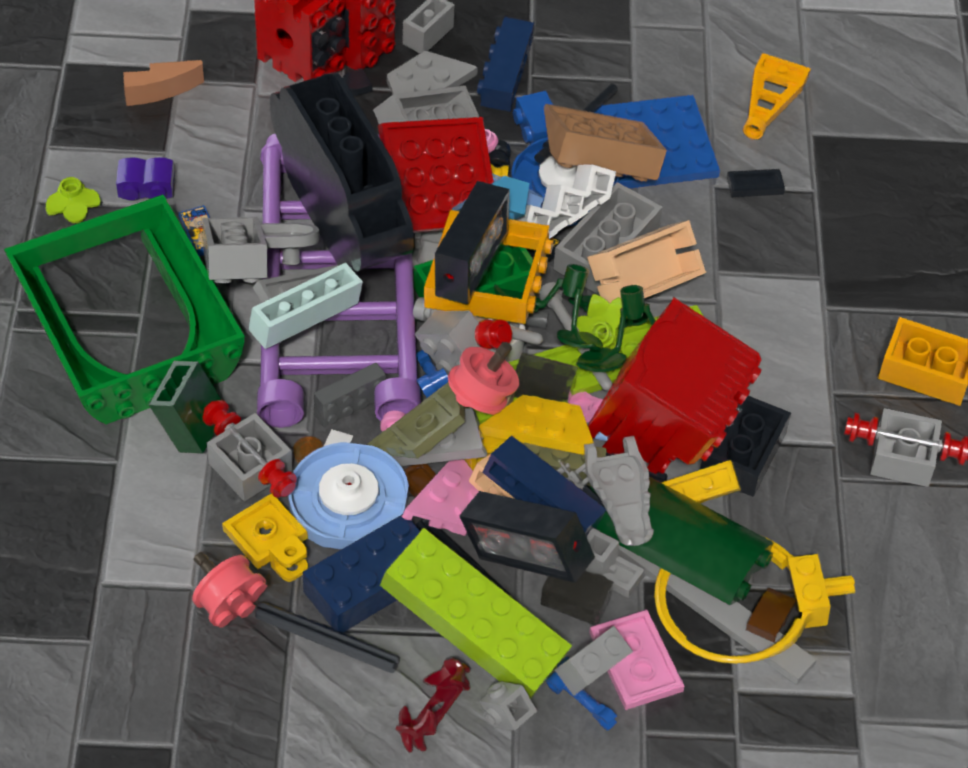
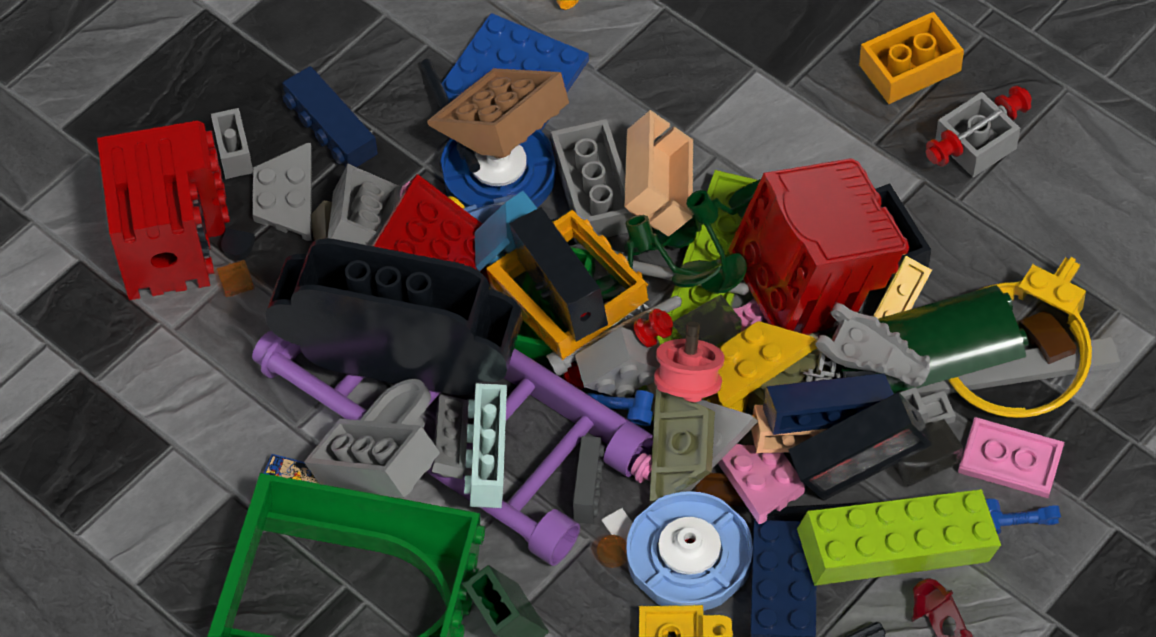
camera: 45 degrees left, 5 degrees up
(72, 200) = (169, 557): lime plate -> none
(145, 178) = (198, 479): dark purple brick -> none
(162, 81) = (91, 394): nougat slope -> none
(248, 453) = (591, 595): light grey brick -> none
(507, 706) = (992, 574): light grey brick -> none
(531, 116) = (414, 141): blue brick -> none
(567, 204) = (548, 180): white brick -> none
(593, 660) = (1006, 484): light grey brick -> none
(601, 317) = (680, 240): lime plate -> none
(755, 183) = (621, 39): black tile -> none

